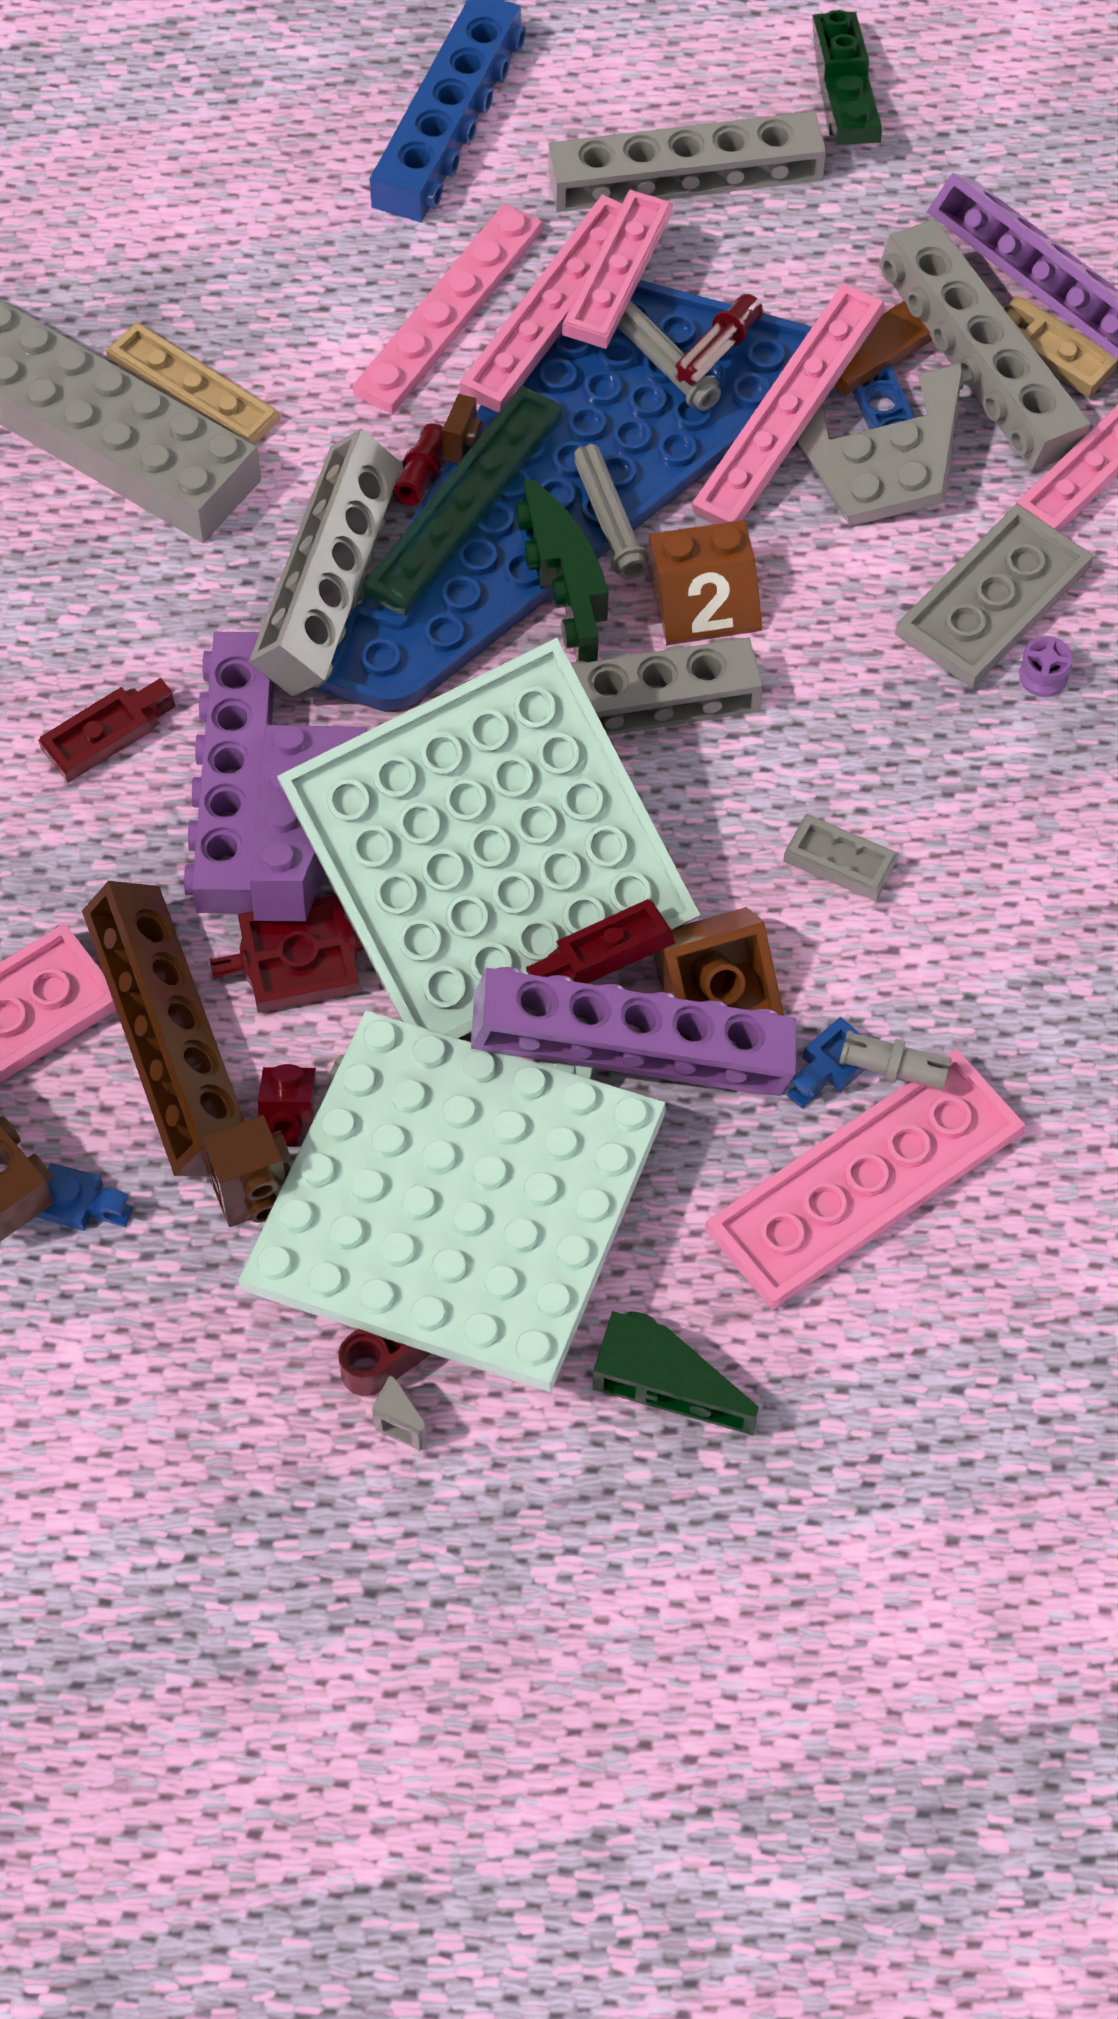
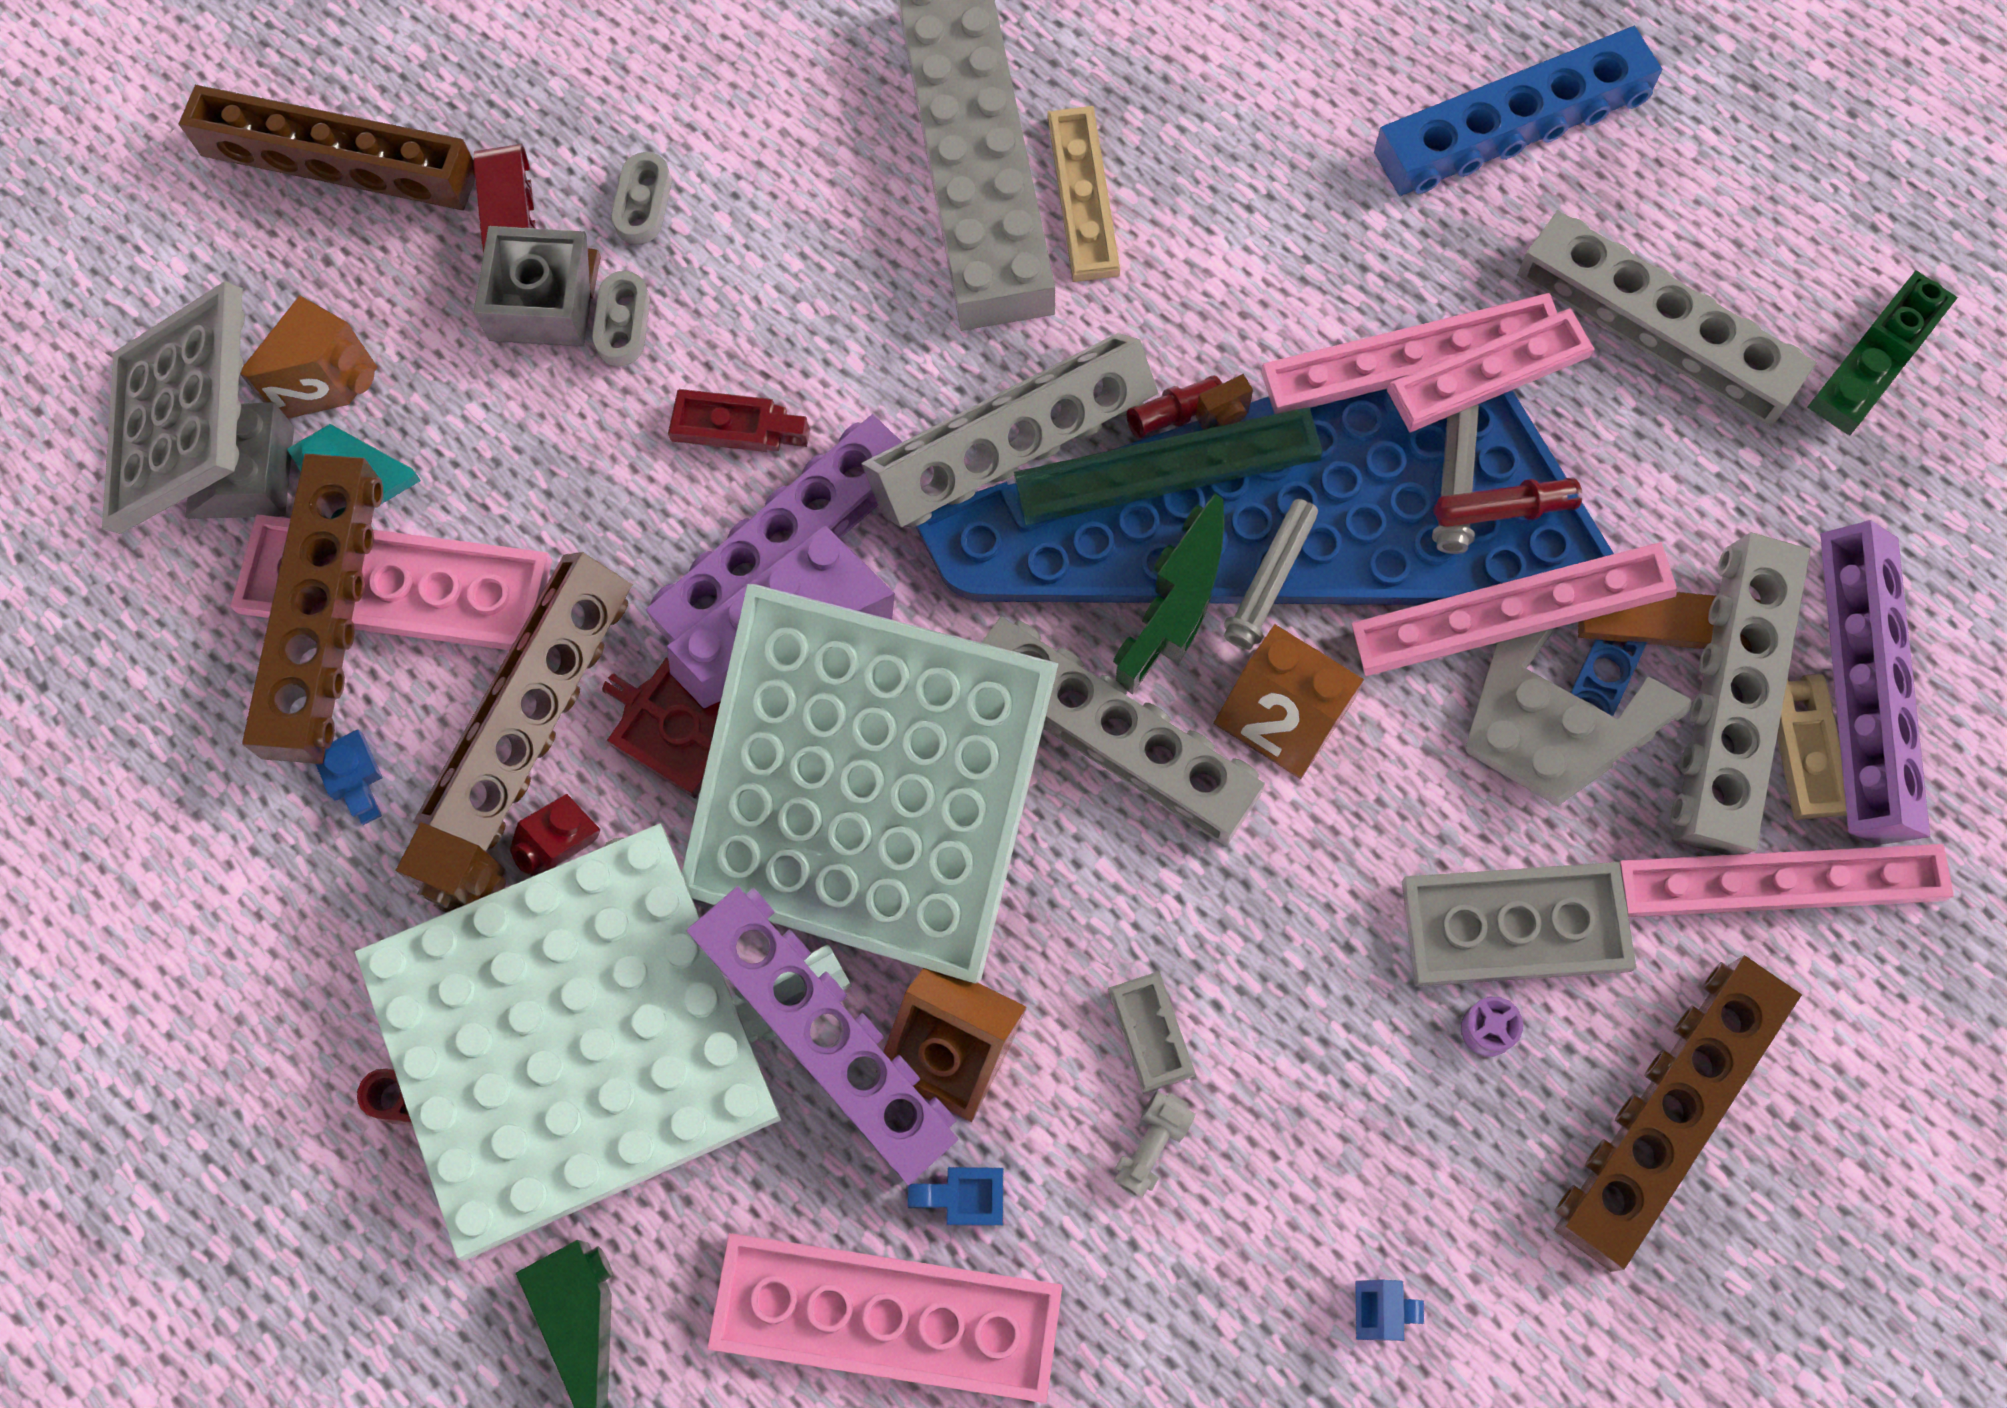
camera: 50 degrees right, 10 degrees up
(397, 1416) = (370, 1160): light grey slope -> none
(447, 308) = (1342, 287): bright pink plate -> none
(607, 945) = (867, 944): dark red hinge -> none
(895, 1060) = (996, 1251): light grey pin -> none
(911, 899) = (1167, 1118): none -> light grey bar

